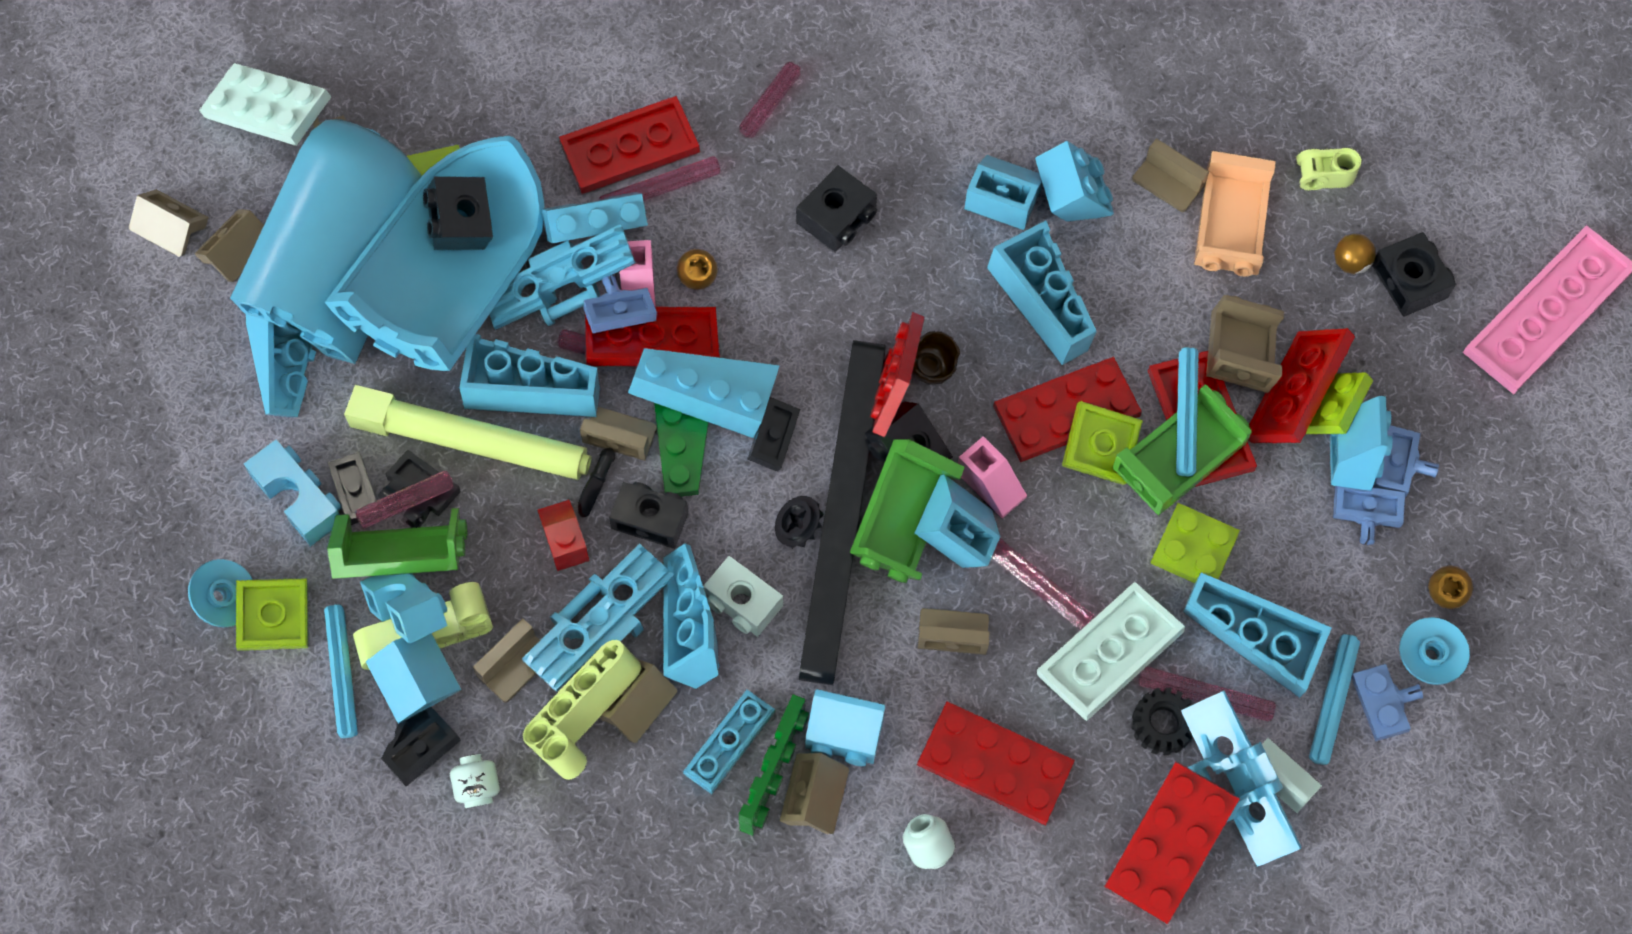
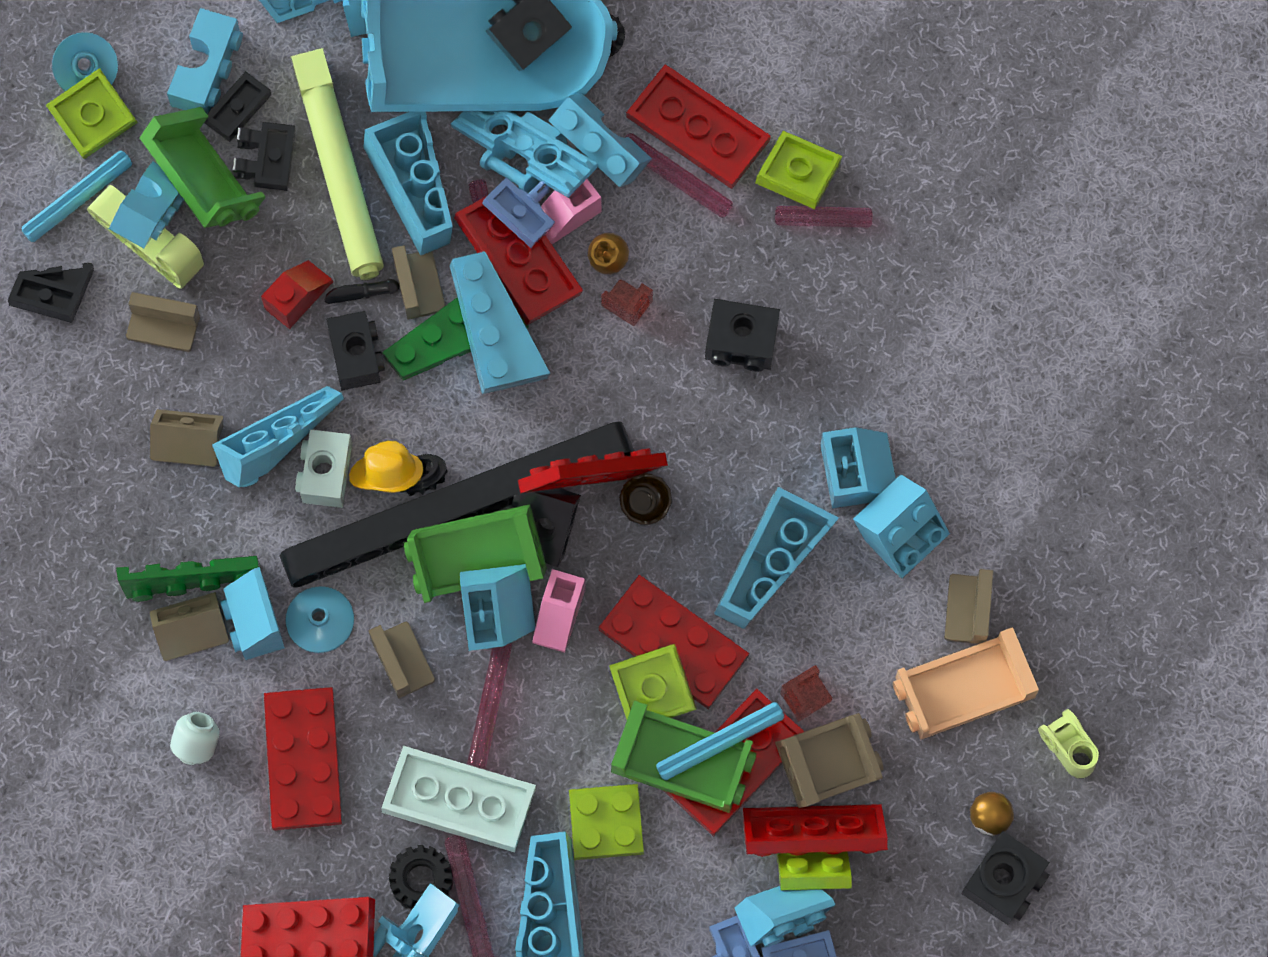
camera: 60 degrees right, 5 degrees up
(404, 499) = (244, 150): clear pink axle -> none
(412, 676) = (97, 253): medium azure slope -> none
(474, 781) = (41, 354): light aqua head -> none
(579, 706) = (145, 394): yellowish green beam -> none
(604, 622) = (234, 372): medium azure piece -> none
(716, 757) = (216, 533): medium azure tile -> none
(719, 93) = (798, 169): none -> lime plate
(749, 280) = (627, 301): none -> clear red panel
(774, 434) = (491, 408): black plate -> none
(778, 544) = (386, 468): none -> yellow piece
(889, 690) = (325, 634): none -> medium azure dish
(1172, 334) = (805, 693): none -> clear red panel

